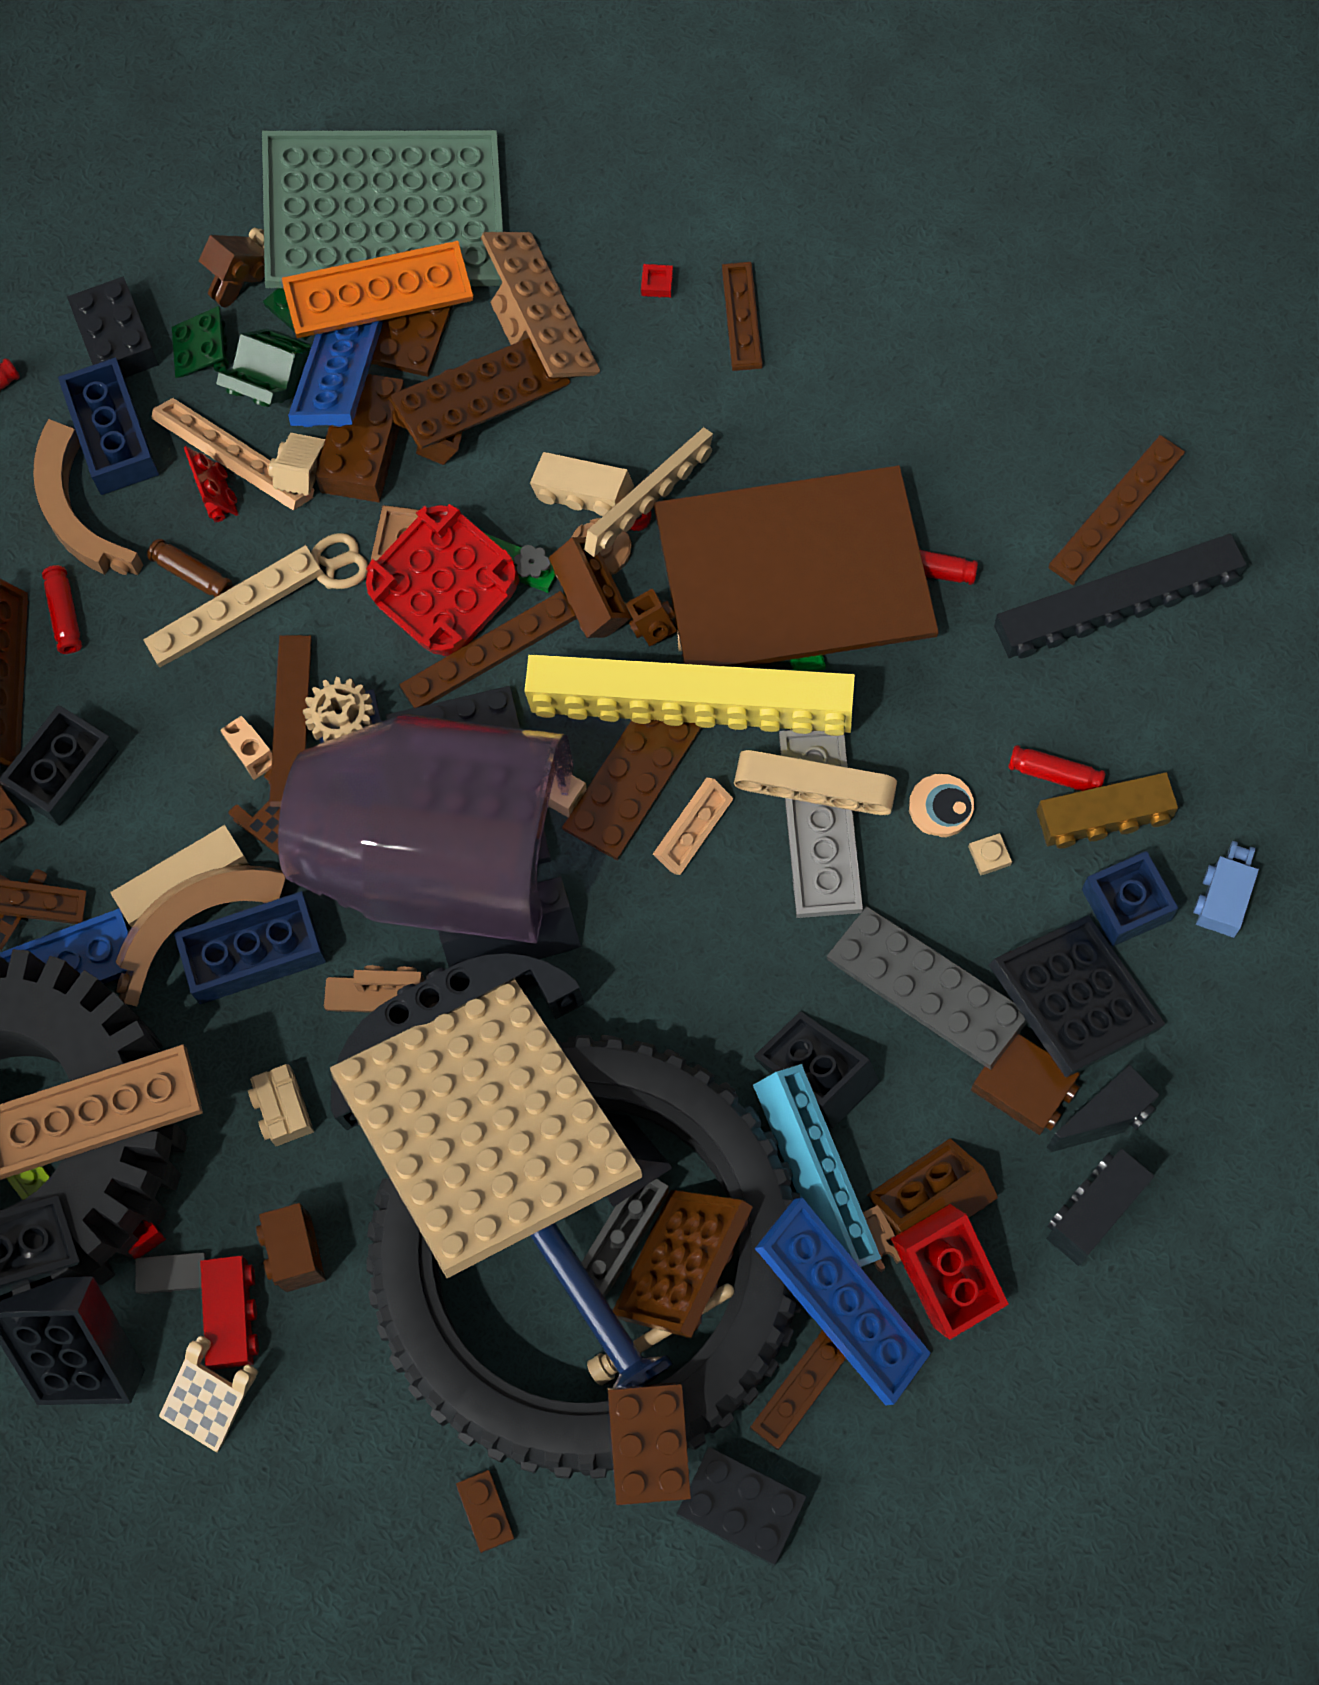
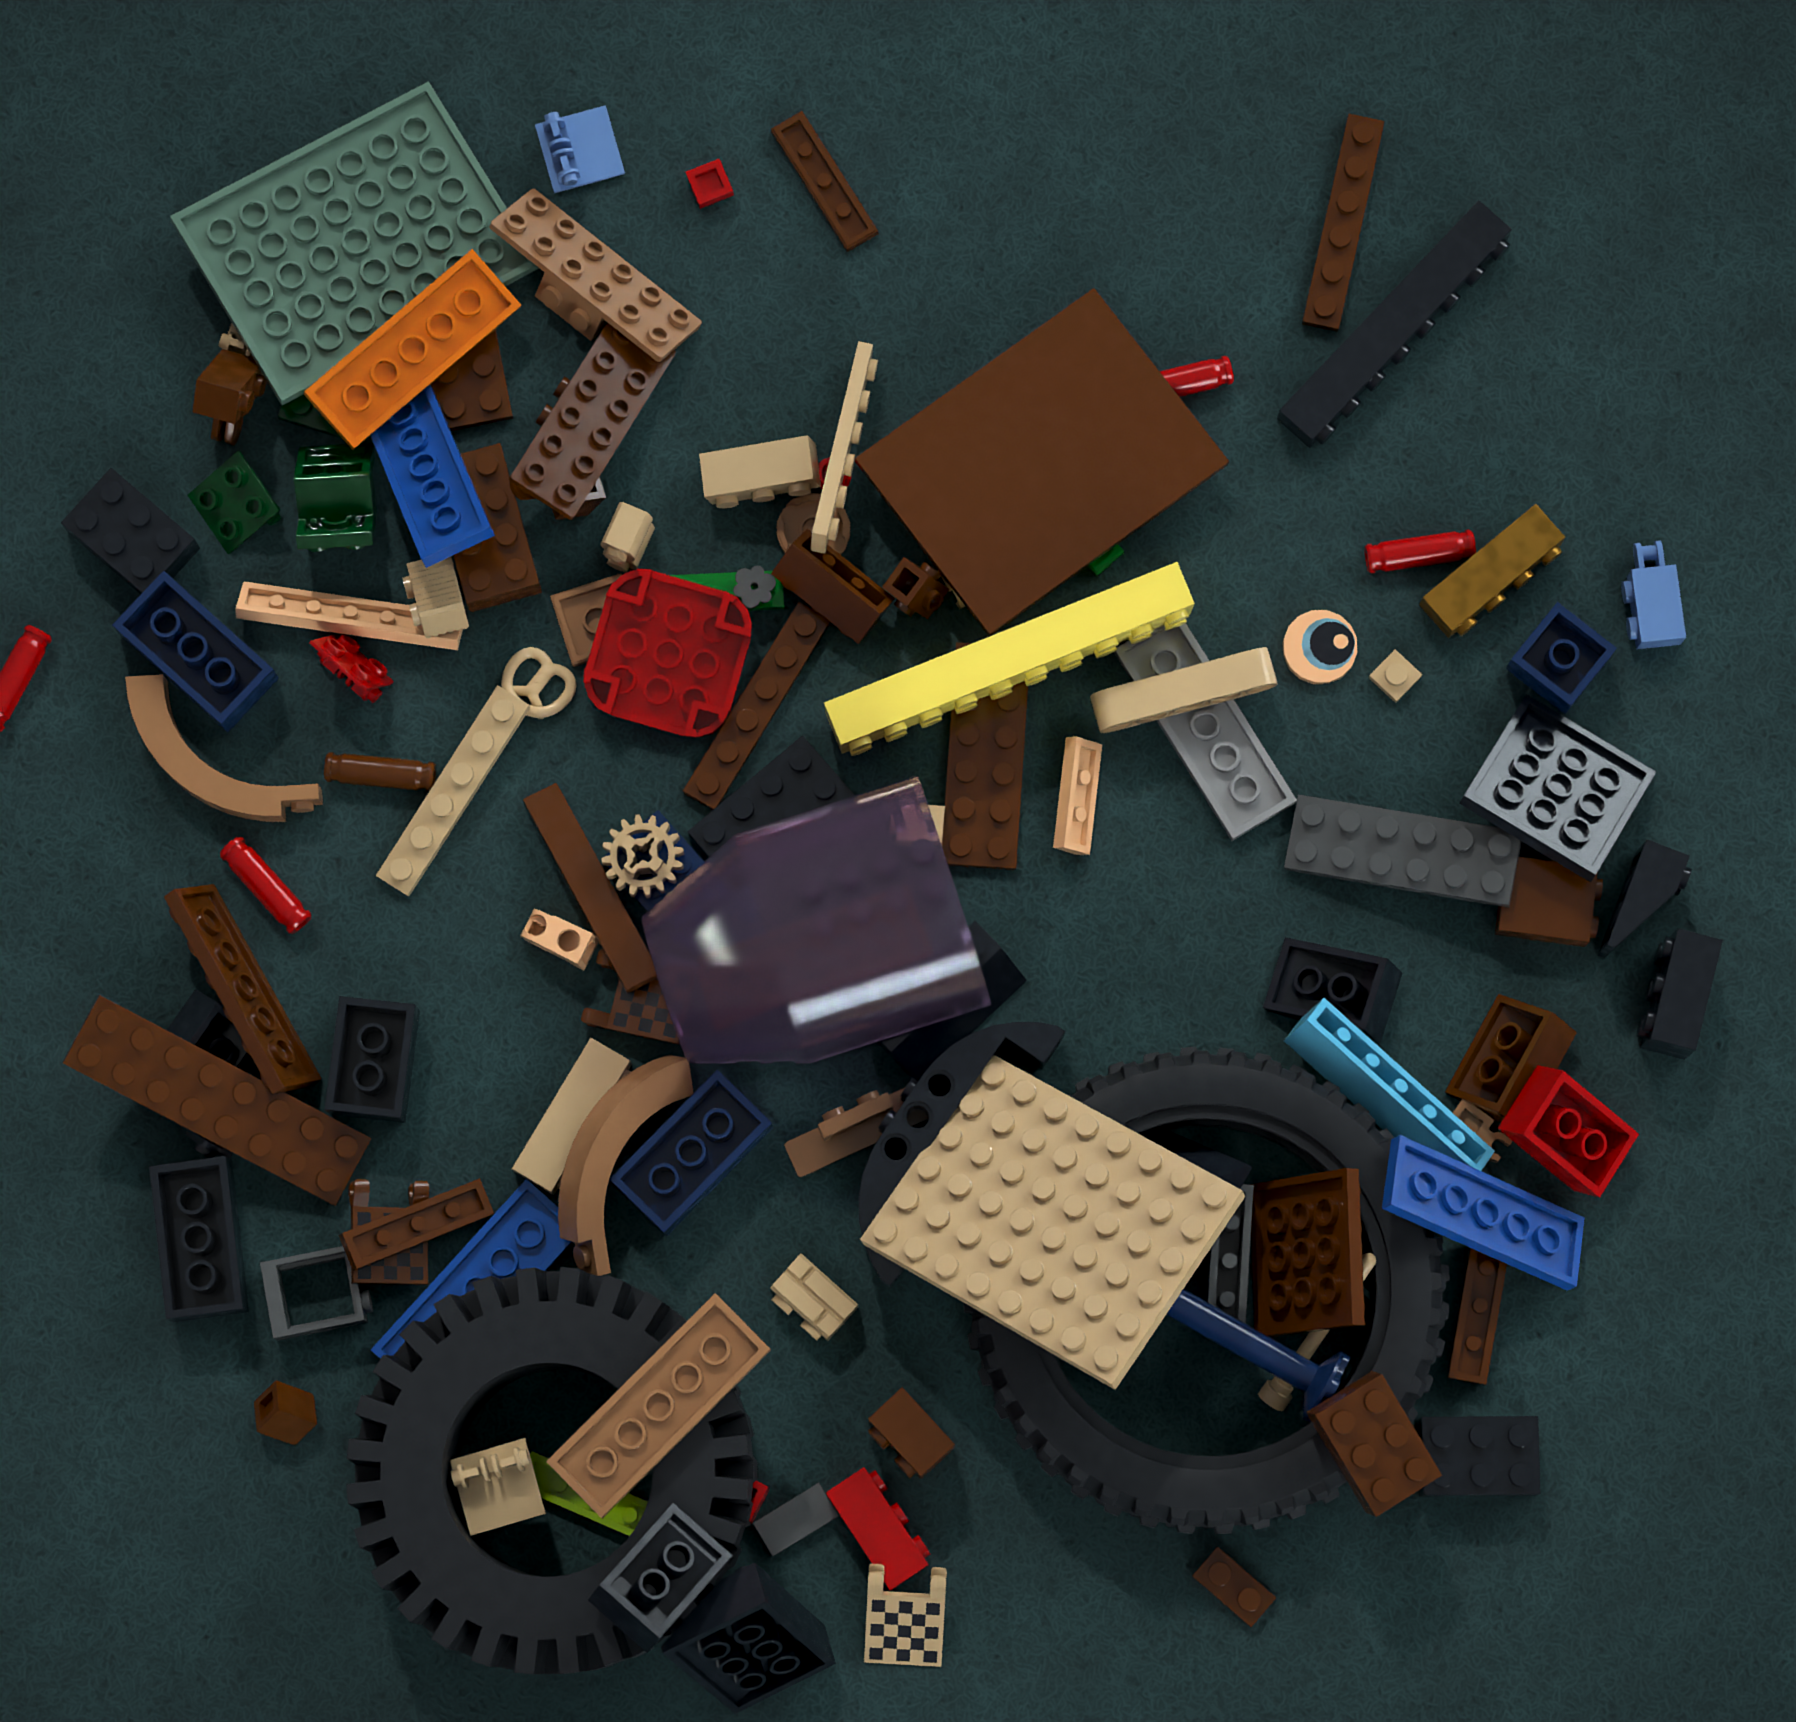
camera: 30 degrees left, 10 degrees up
(458, 483) = (627, 537): none -> tan brick
(577, 219) = (579, 148): none -> medium blue hinge

